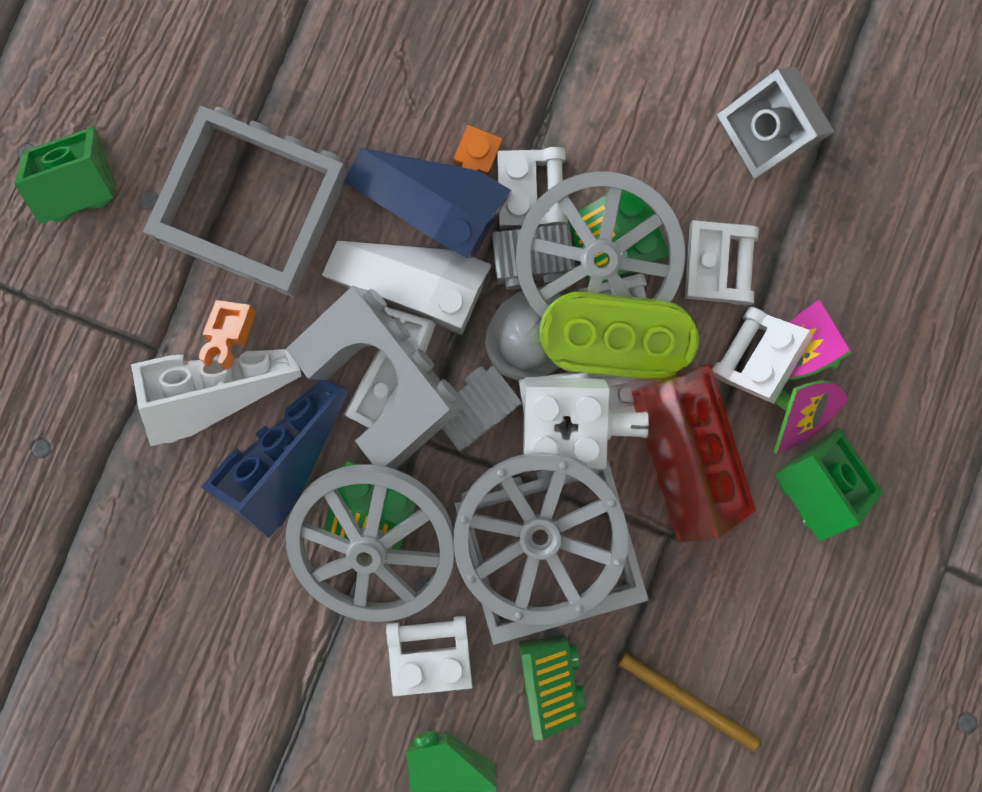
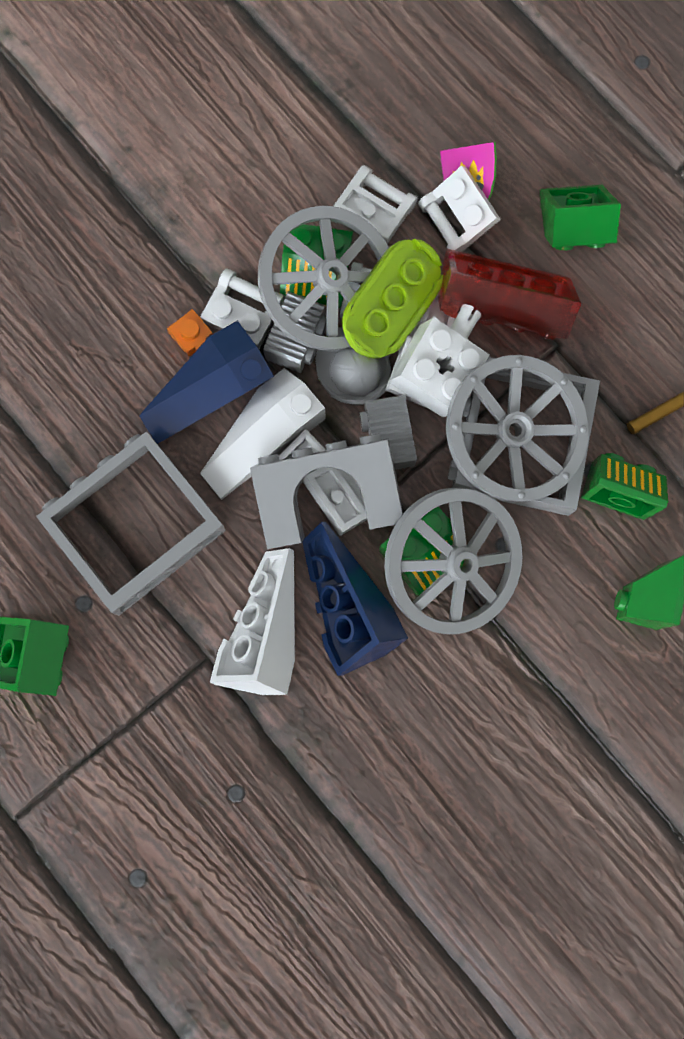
camera: 60 degrees left, 5 degrees down
(226, 327) = (223, 591): plate -> none
(433, 668) = (568, 573): white plate -> none
(775, 121) = (292, 113): light grey slope -> none
(807, 411) = (518, 200): dark pink shield -> none

